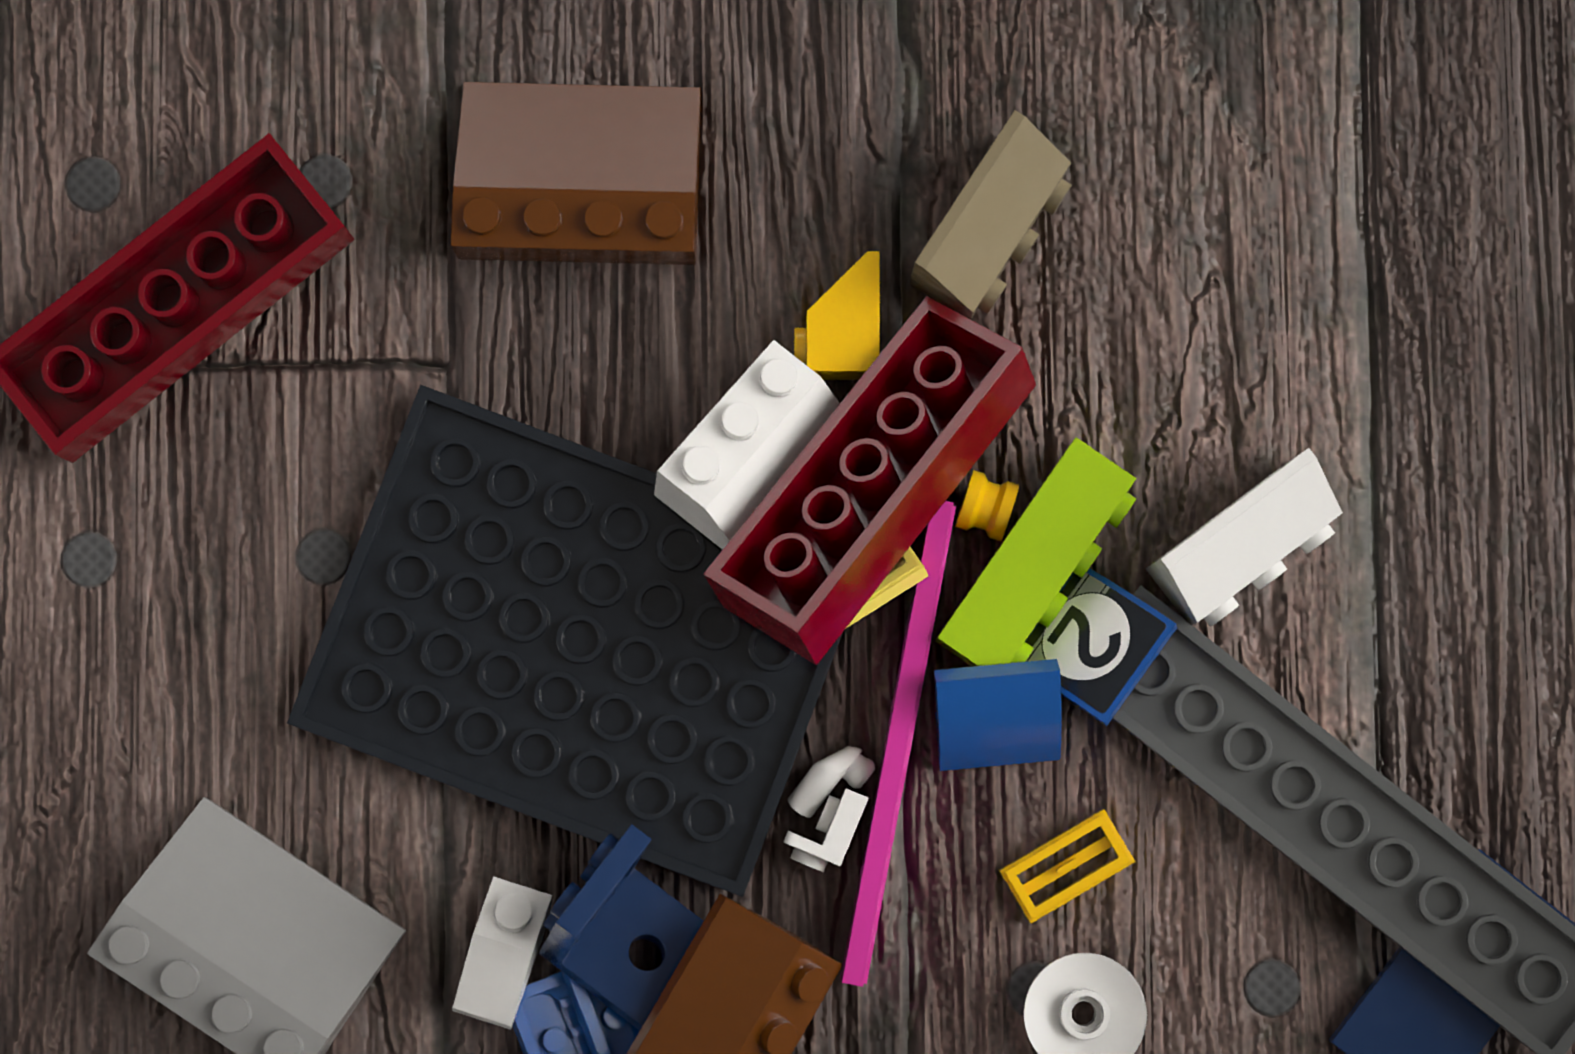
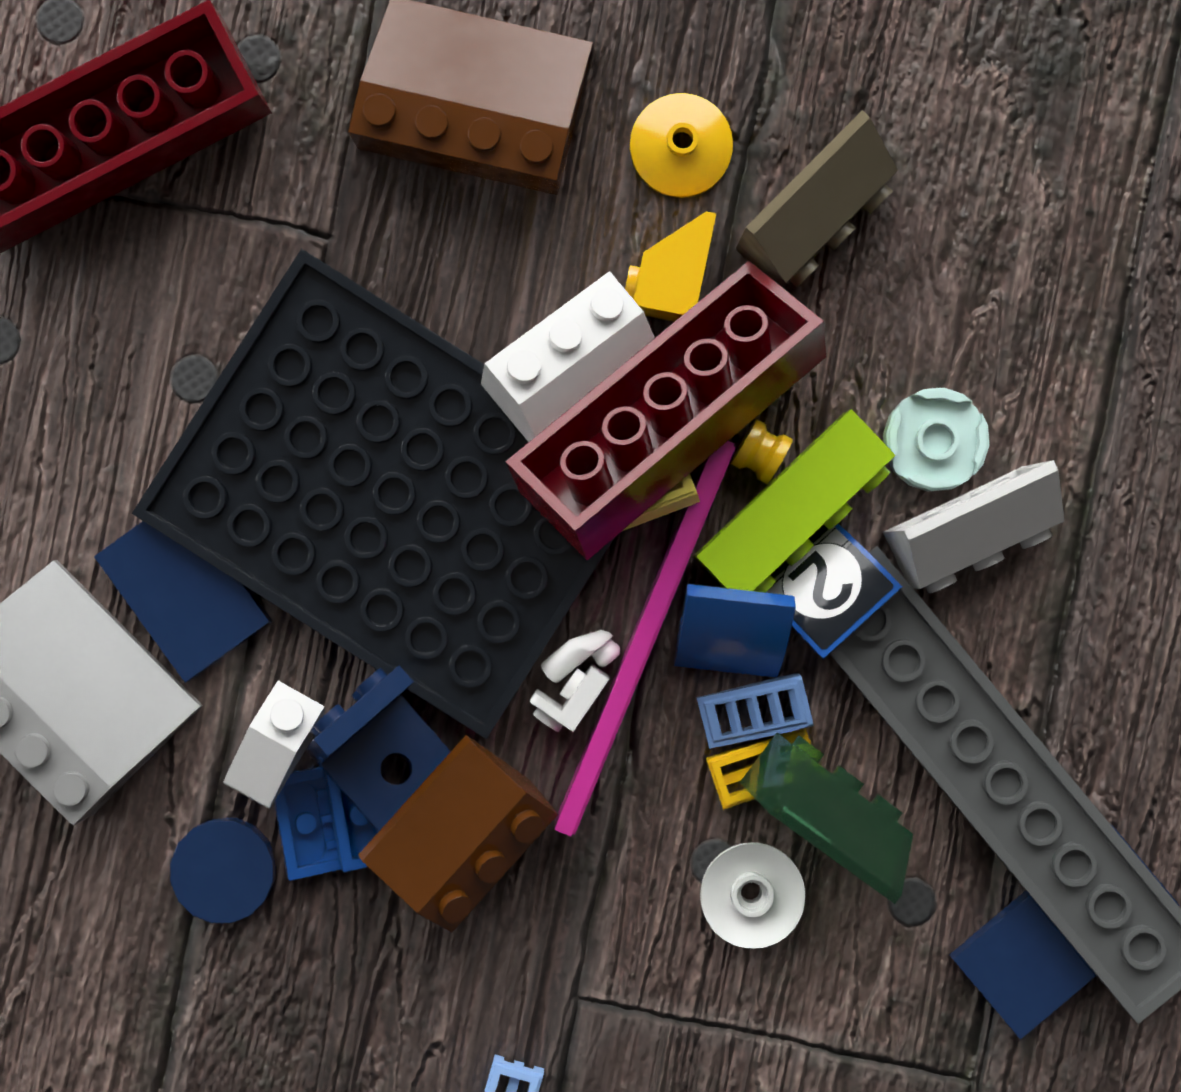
camera: 10 degrees right, 5 degrees up
(359, 810) = (181, 599): none -> dark blue tile
(816, 209) = (676, 169): none -> yellow dish
(1089, 780) = (798, 700): none -> medium blue slope
(1153, 894) = (832, 813): none -> clear green slope
(1182, 451) = (936, 439): none -> light aqua tile

